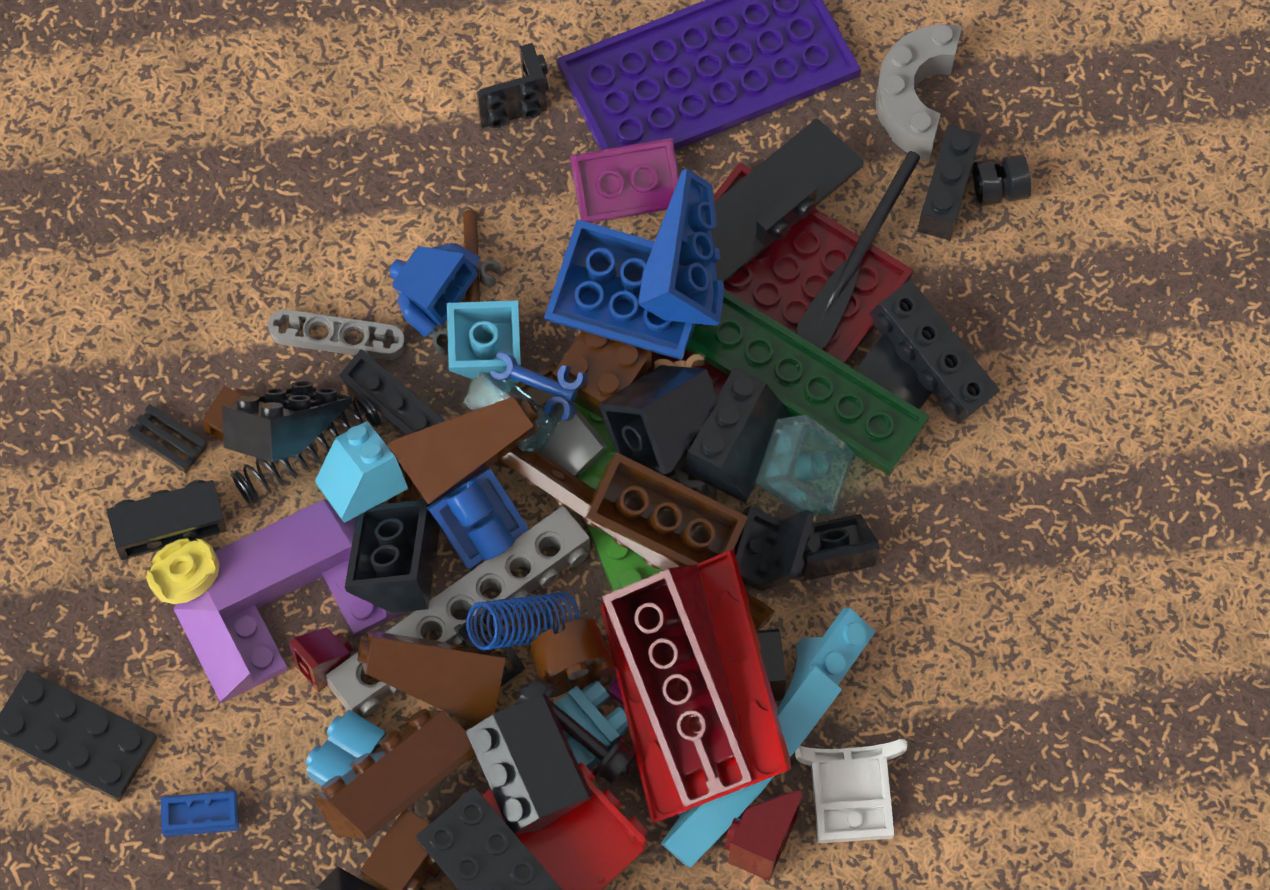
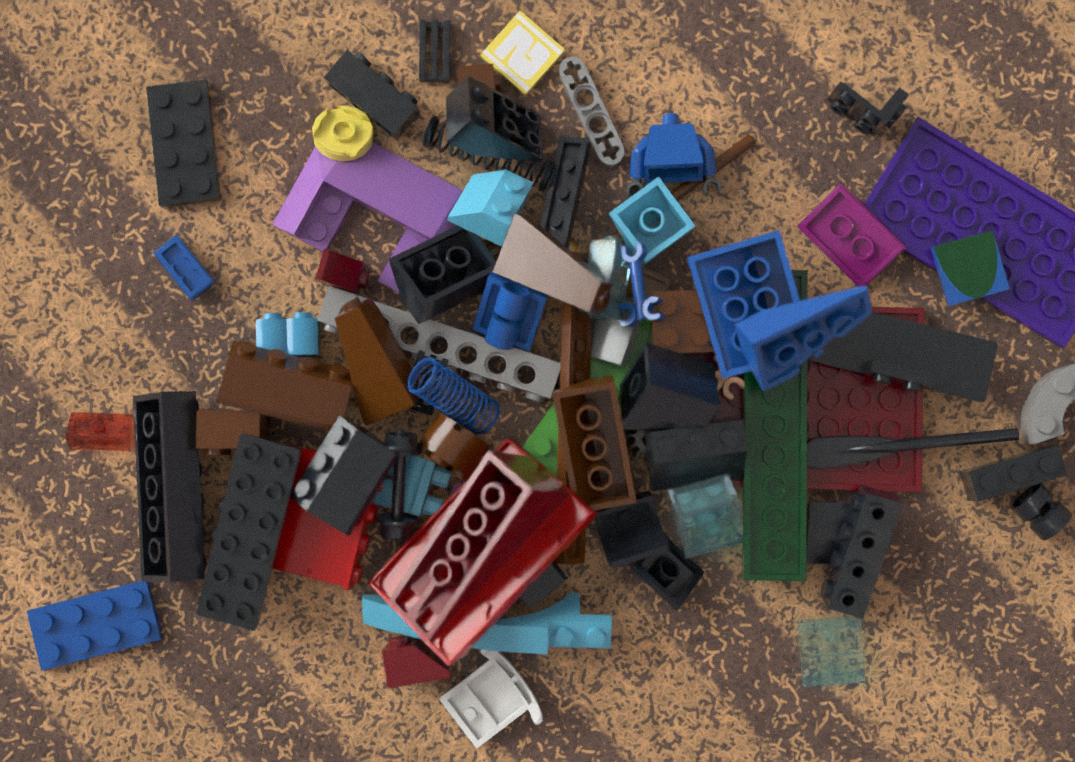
camera: 60 degrees right, 20 degrees up
(232, 359) = (522, 53): none -> tile
(730, 100) = (970, 268): none -> dark green tile
(1015, 446) = (830, 651): none -> clear light blue slope

